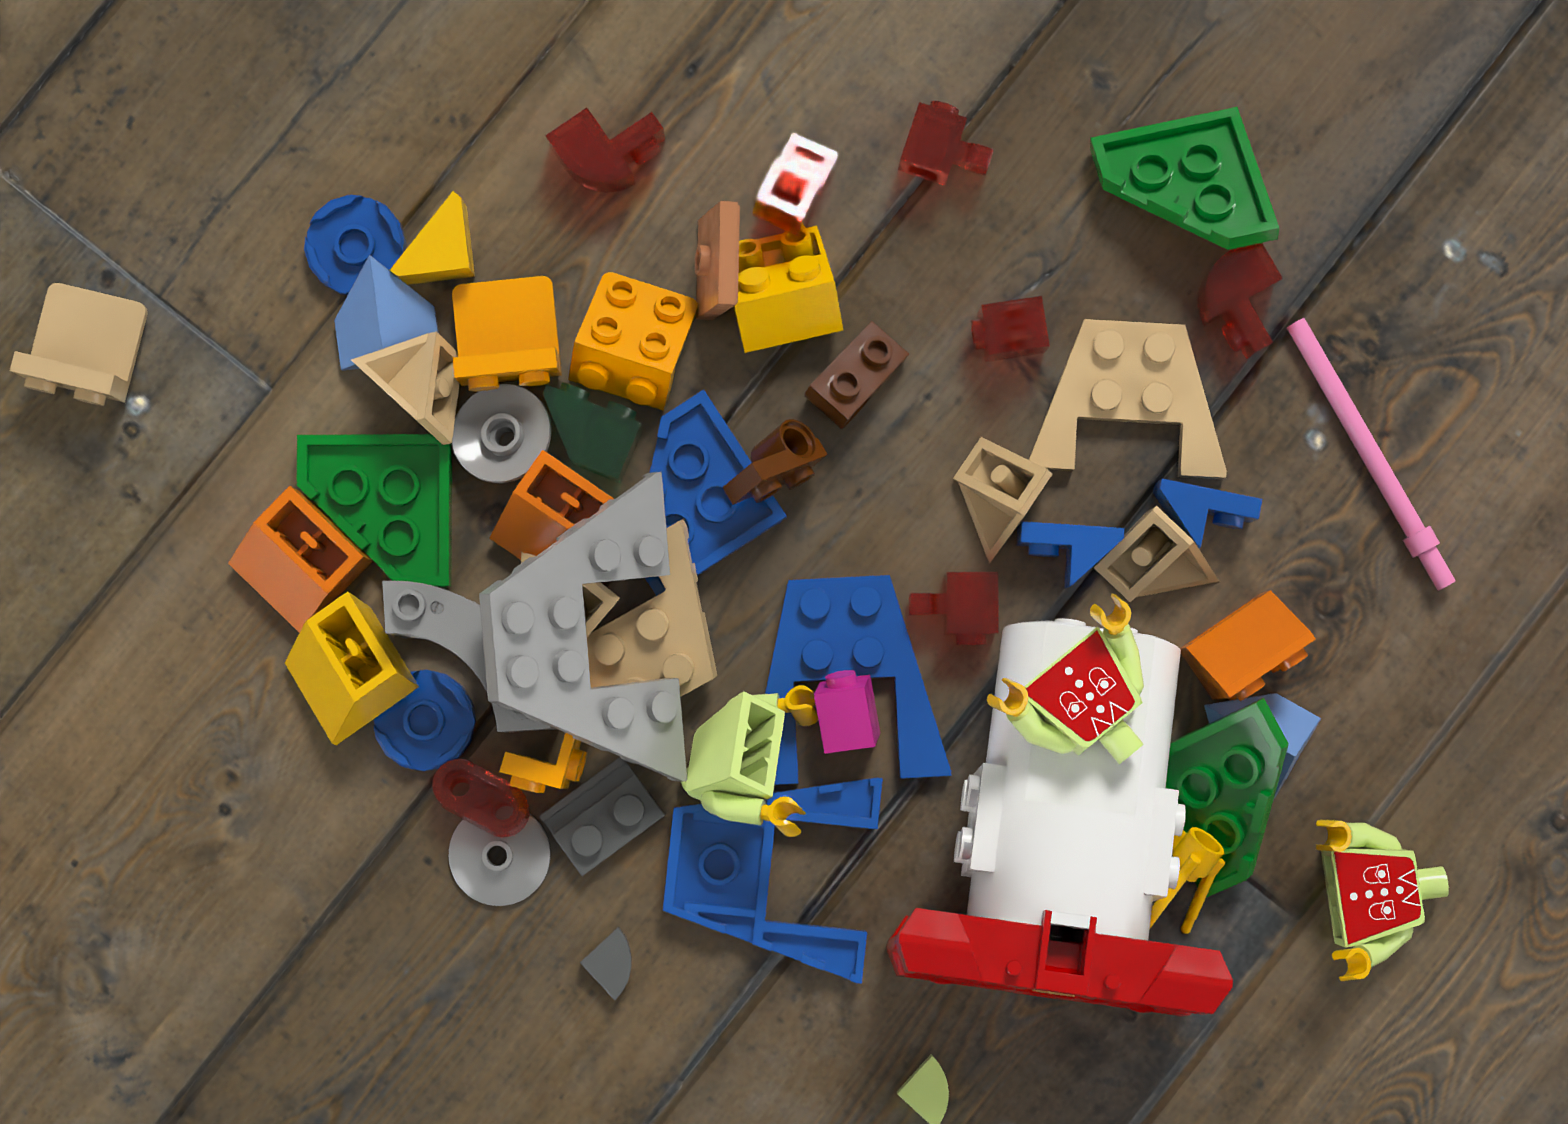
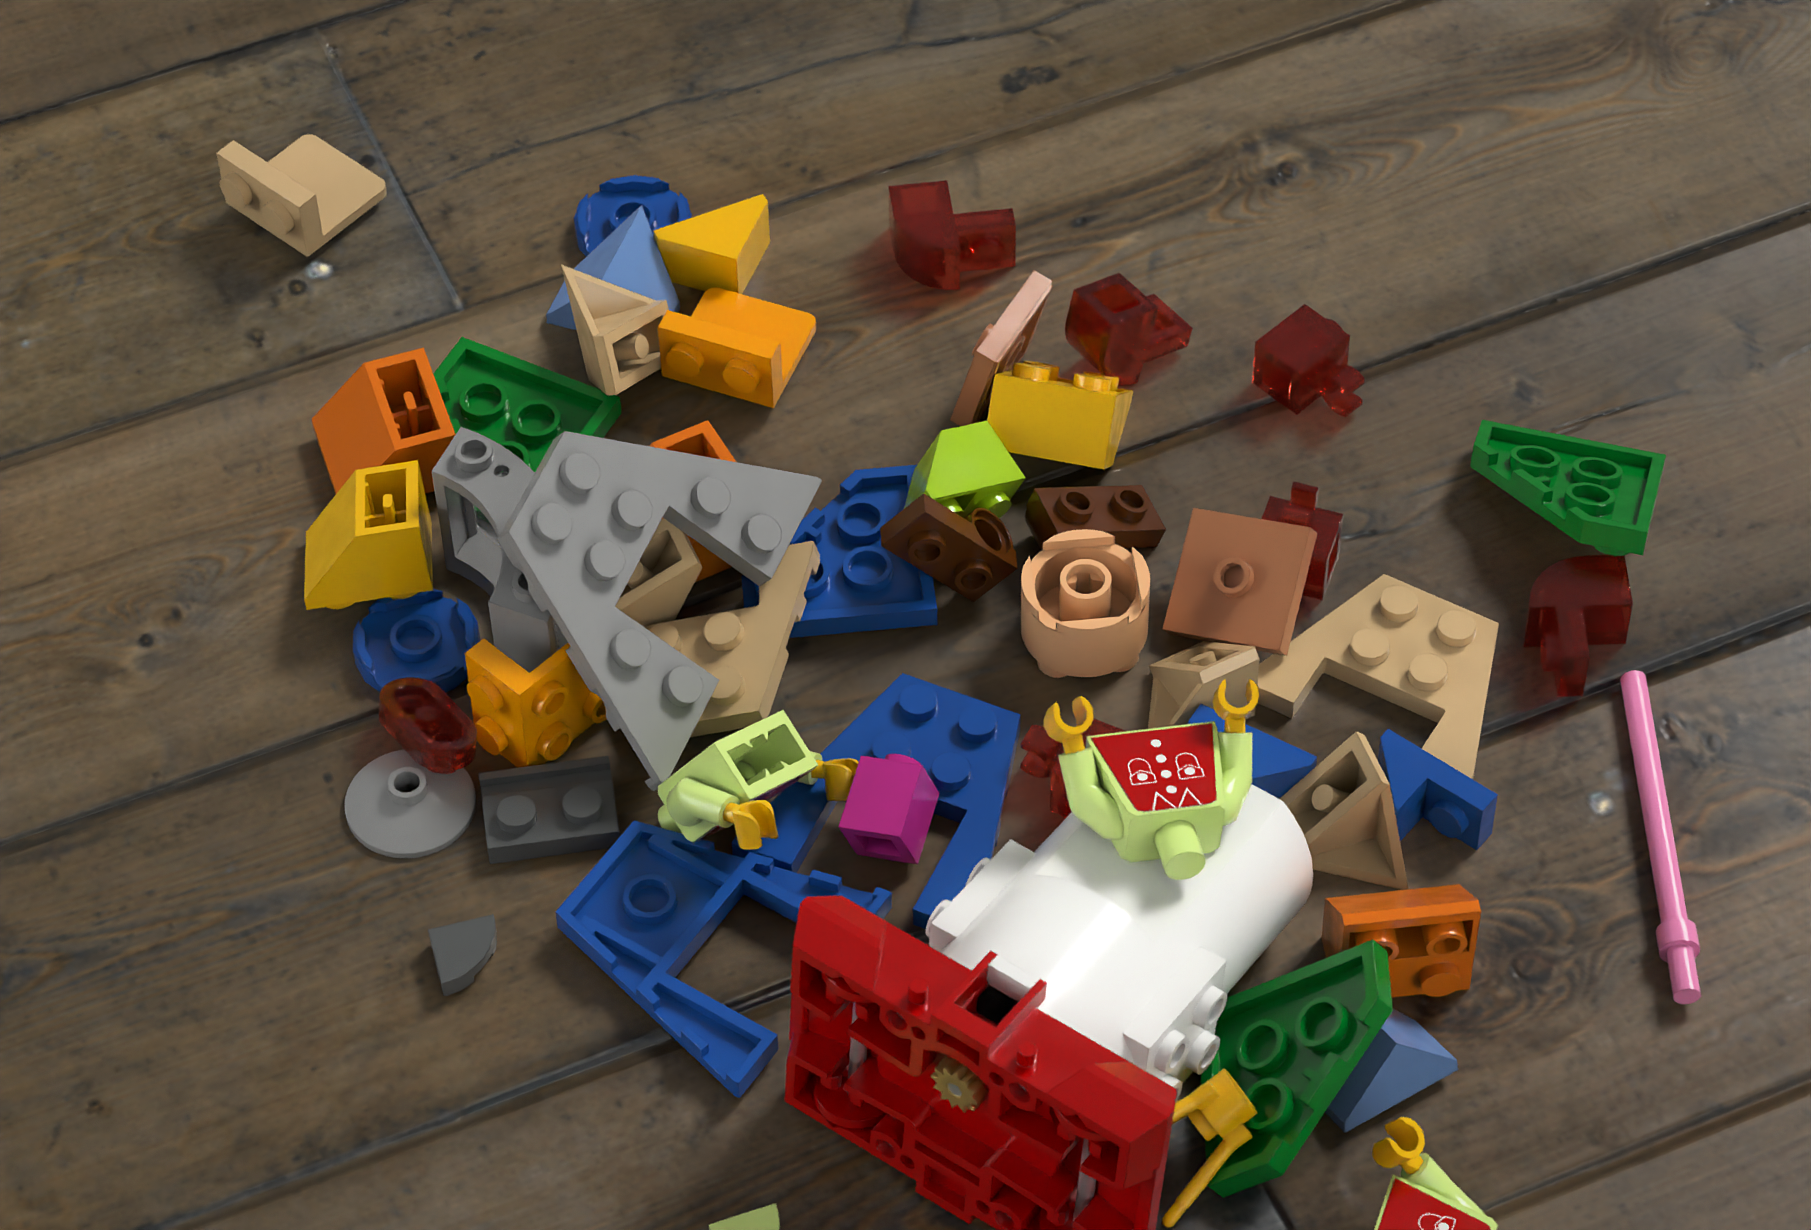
camera: 30 degrees right, 35 degrees down
(486, 419) = (672, 407): light grey dish -> none
(593, 435) = (773, 440): clear green slope -> none
(632, 340) = (859, 397): light orange bracket -> none
(743, 400) = (967, 471): none -> lime slope
(902, 437) = (1084, 605): none -> light nougat brick
(994, 391) = (1240, 581): none -> nougat plate

